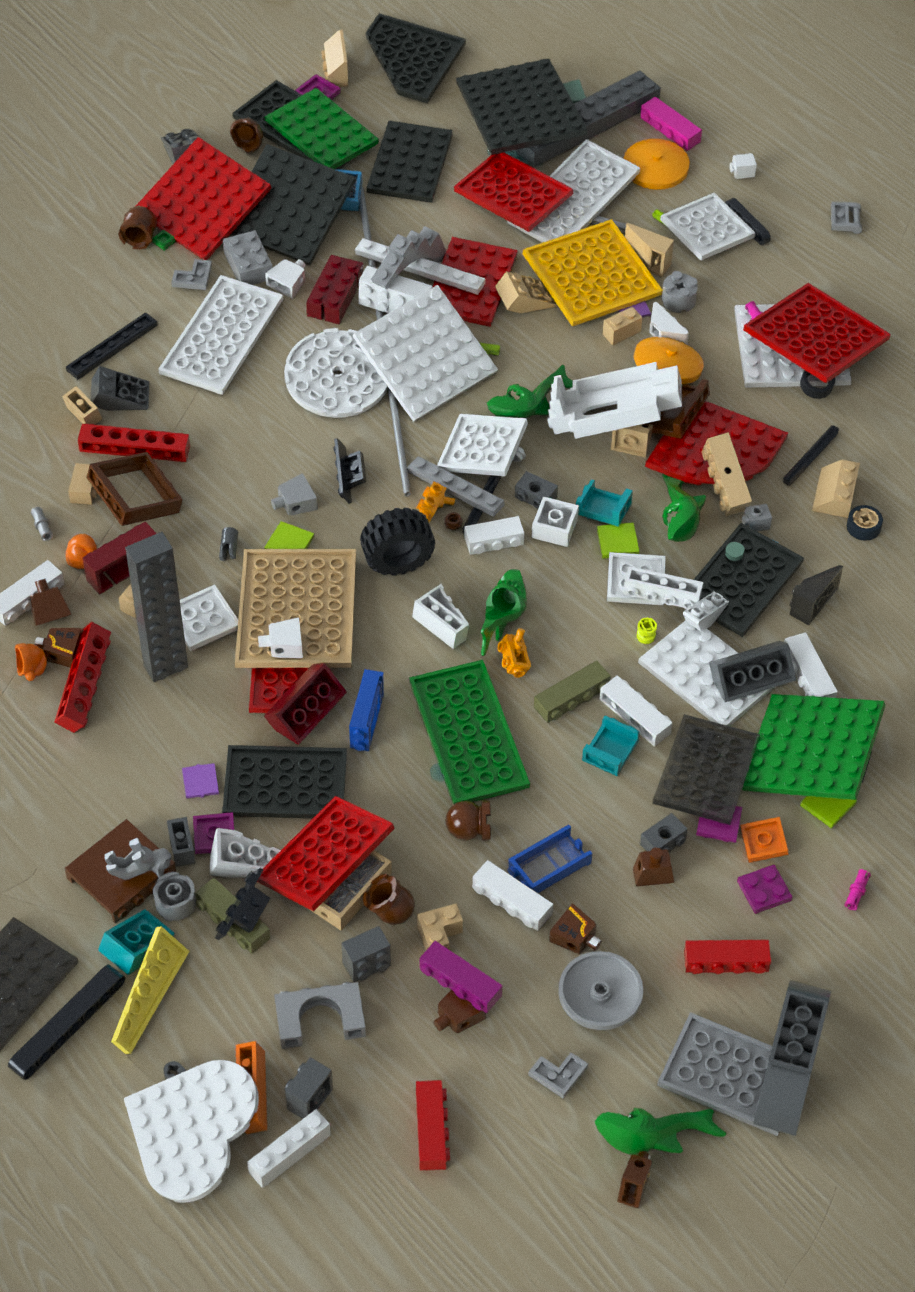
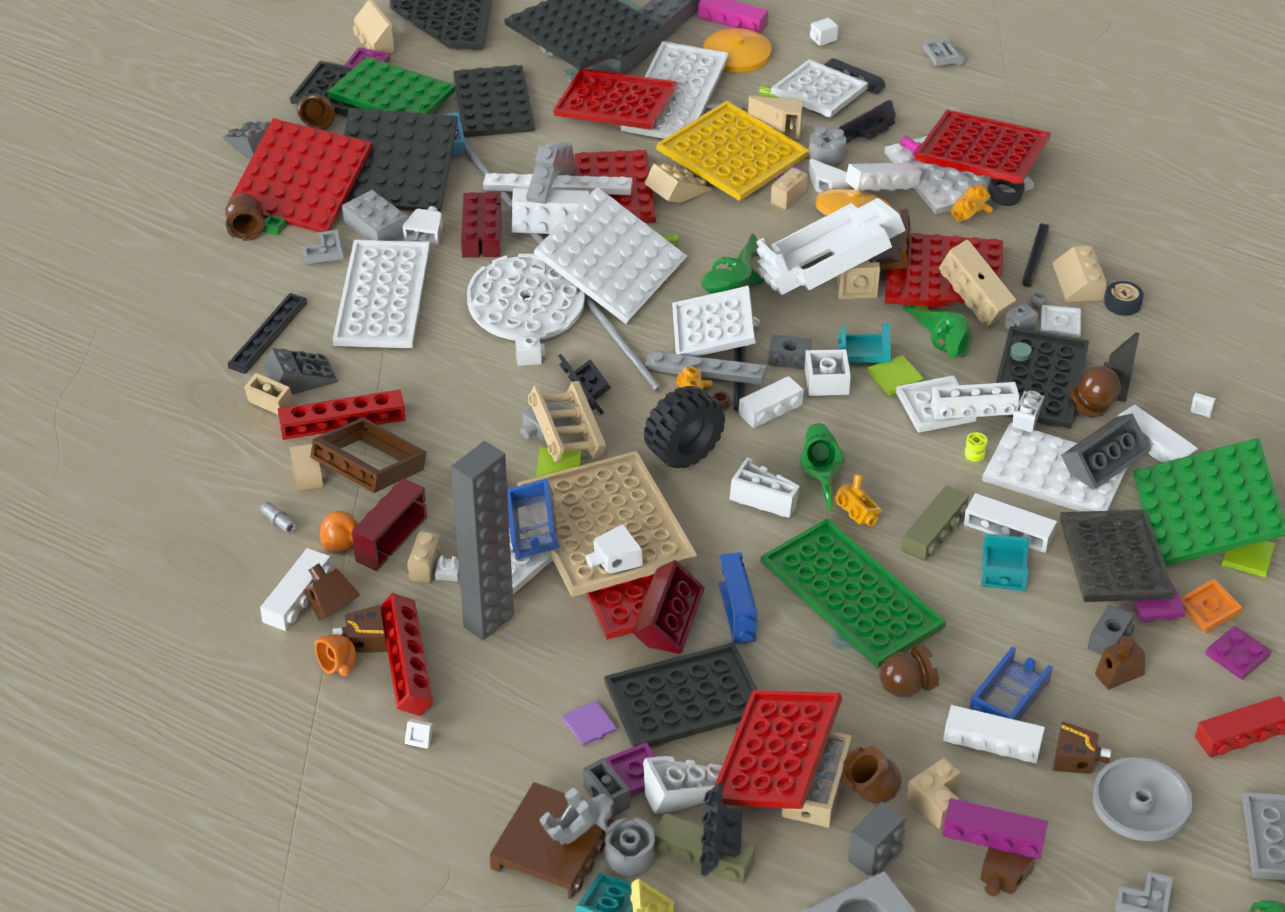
camera: 20 degrees left, 10 degrees down
(62, 748) = (418, 733): none -> white tile
(234, 588) = (532, 519): none -> door
(315, 426) = (529, 350): none -> white brick
(325, 500) = (579, 410): none -> tan fence
(710, 338) = (883, 176): none -> white brick
(734, 276) = (871, 122): none -> black bracket
(777, 610) = (1096, 391): none -> reddish brown tile
(780, 385) = (971, 202): none -> light orange brick
(786, 501) = (1038, 299): none -> light grey hinge
(794, 529) = (1061, 321): none -> white tile
(871, 650) = (1202, 405): none -> white tile

